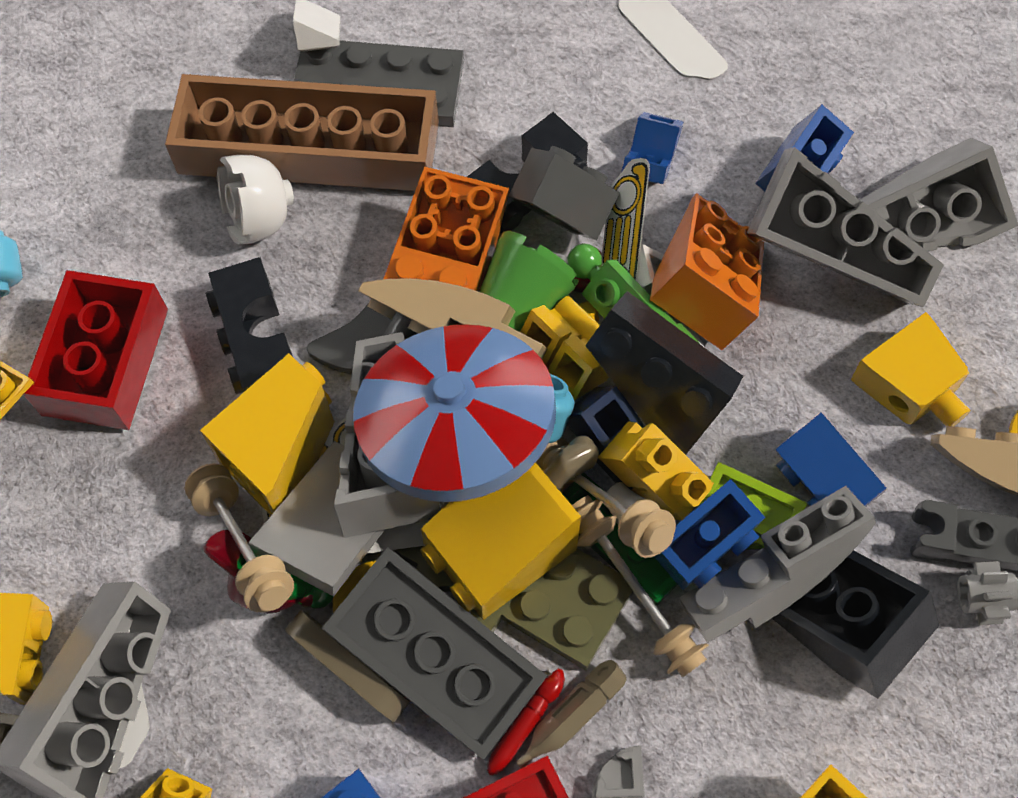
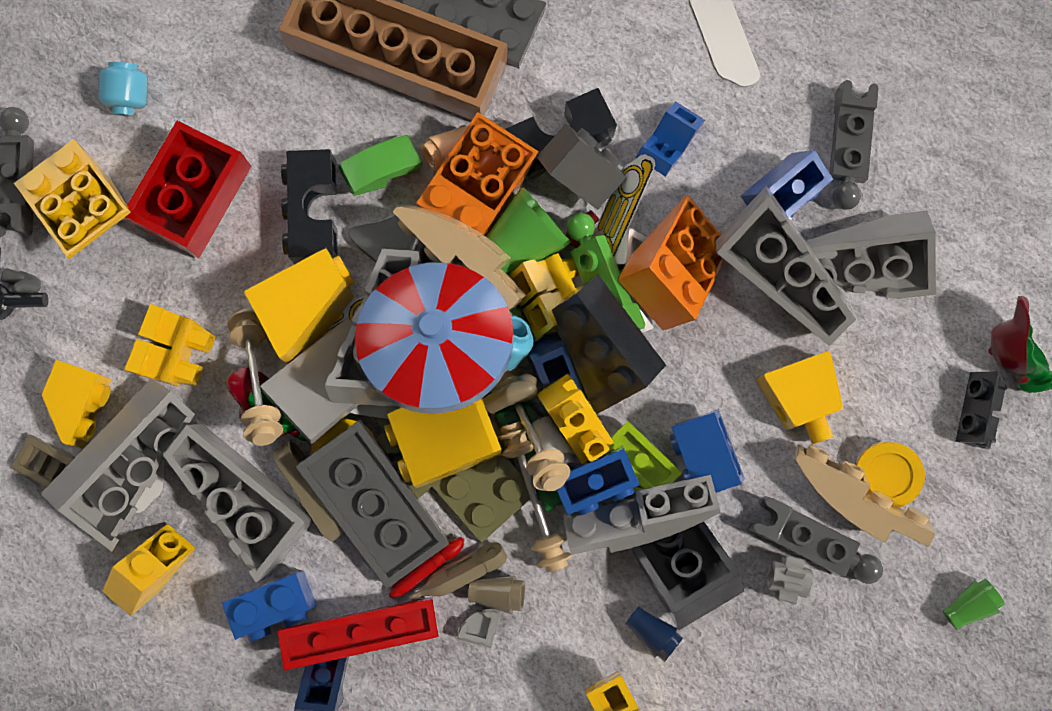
camera: 10 degrees right, 15 degrees up
(114, 541) = (173, 332): none -> yellow hips
(253, 197) = (339, 93): white cylinder -> none
(271, 709) = (239, 498): none -> light grey wedge
(317, 266) = (375, 165): none -> bright green slope
(387, 225) = (439, 146): none -> light nougat cone
(630, 724) = (498, 593): none -> dark tan cone
(848, 714) = (655, 634): none -> dark blue cone
(857, 97) = (851, 142): none -> dark grey plate

